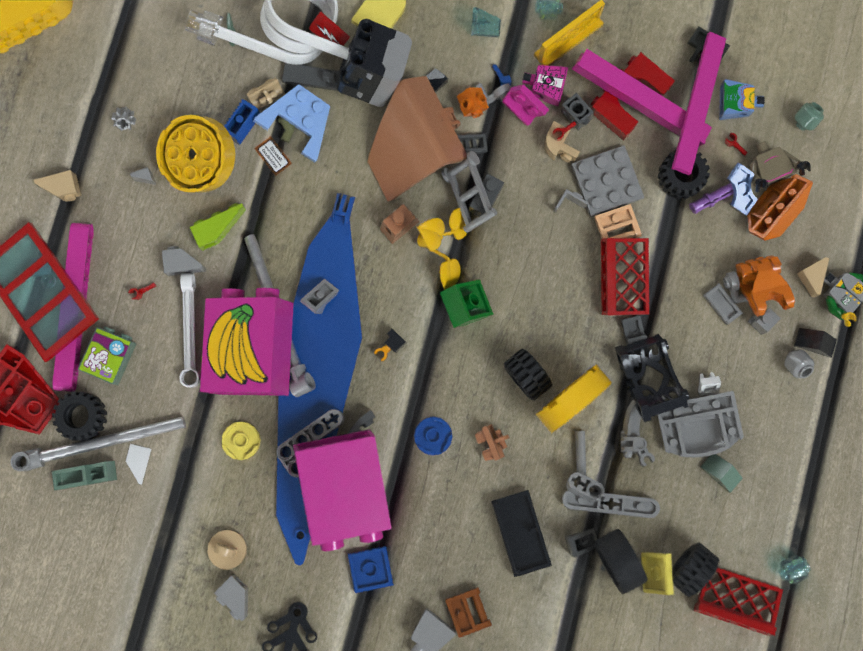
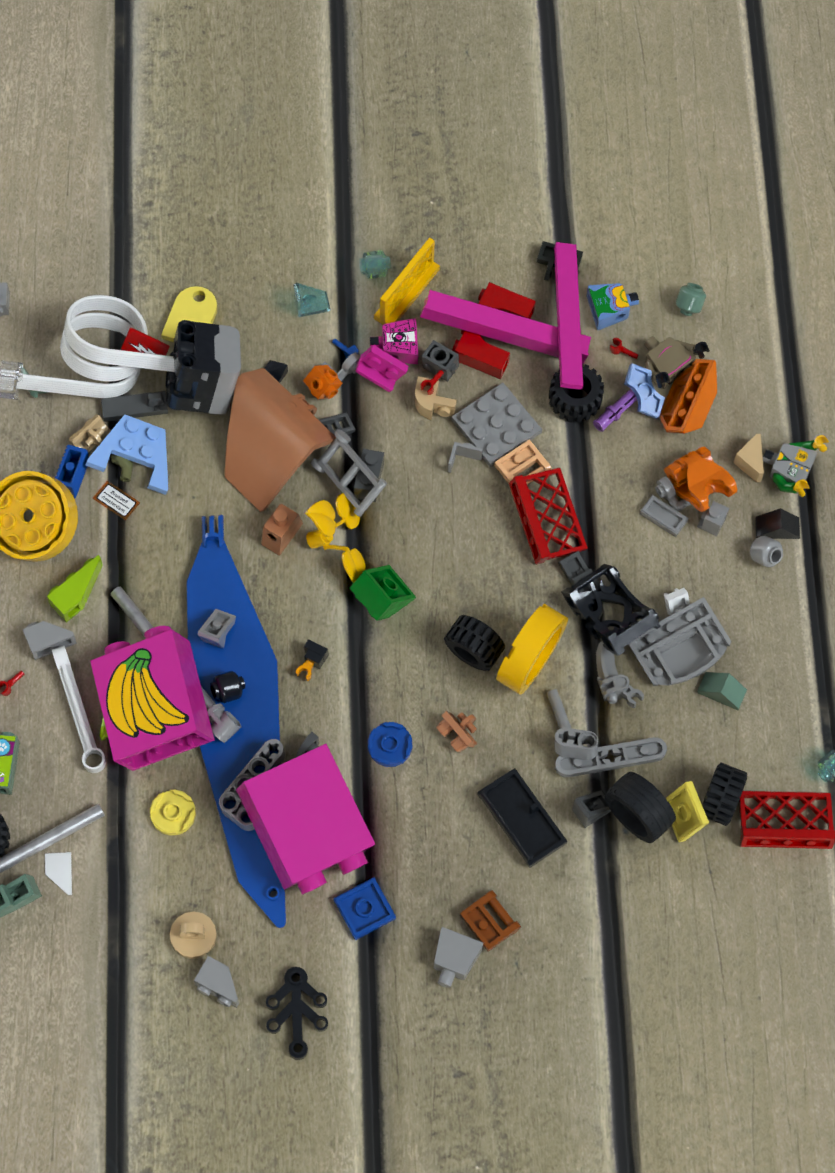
camera: 20 degrees left, 15 degrees down
(313, 350) = (227, 687): none -> black head

